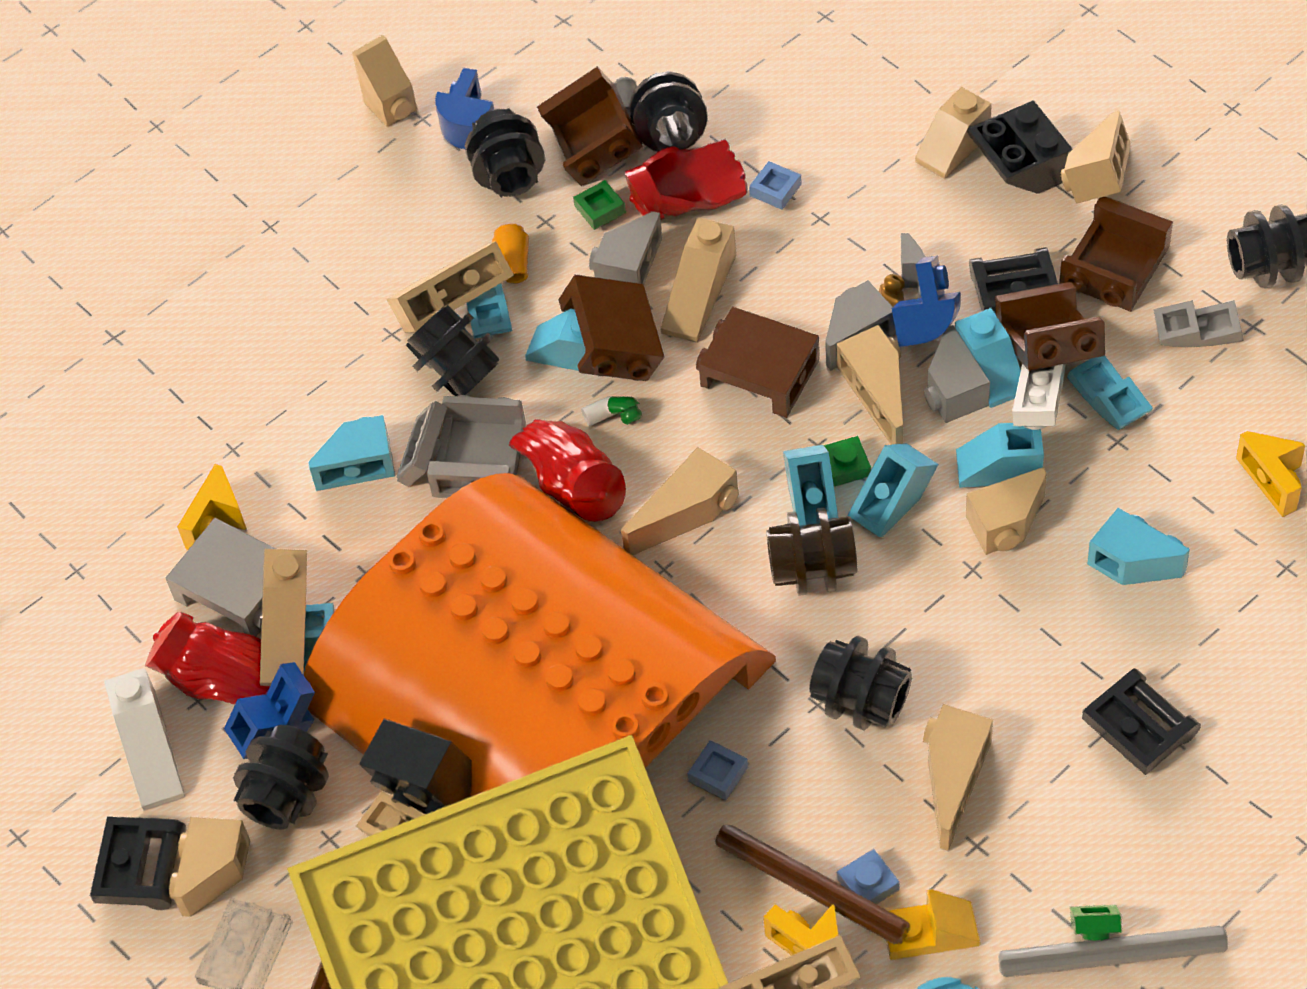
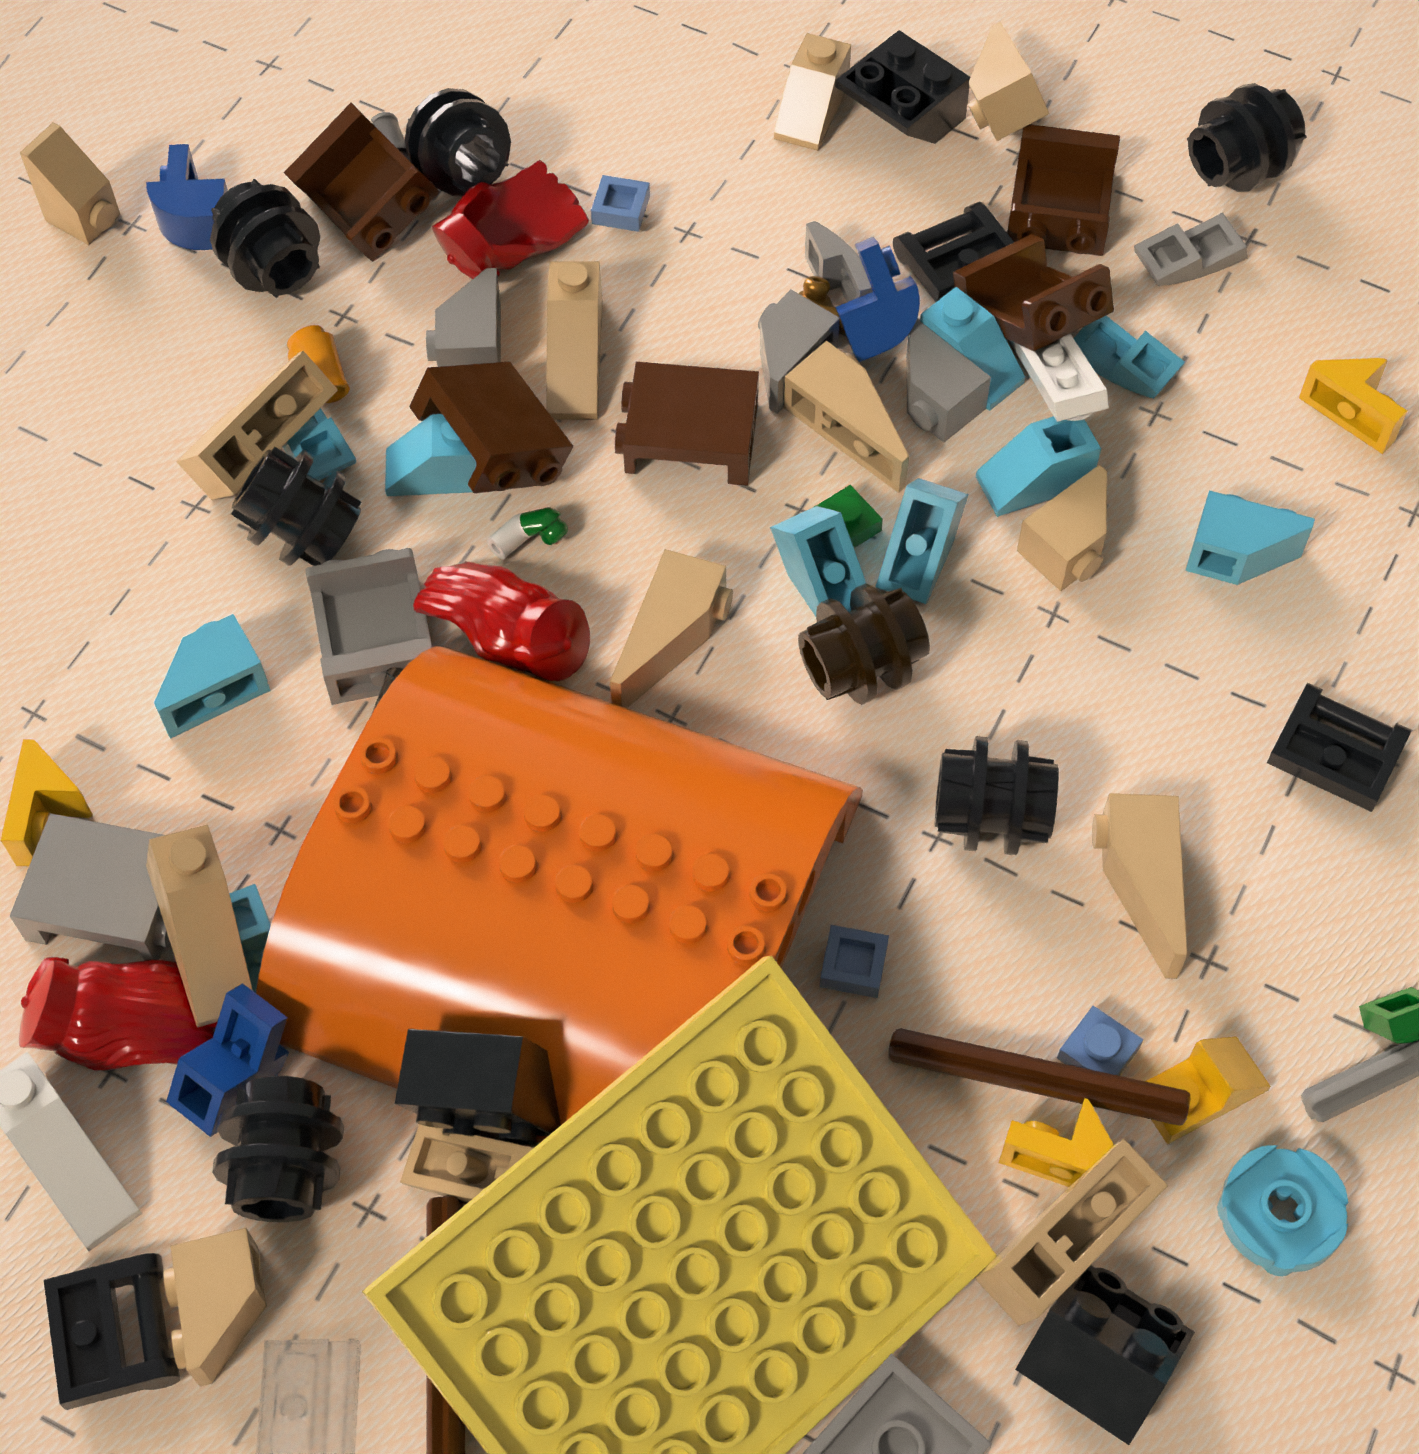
camera: 25 degrees left, 5 degrees up
(422, 444) = (295, 639): light grey plate -> none
(599, 204) = (408, 277): green plate -> none

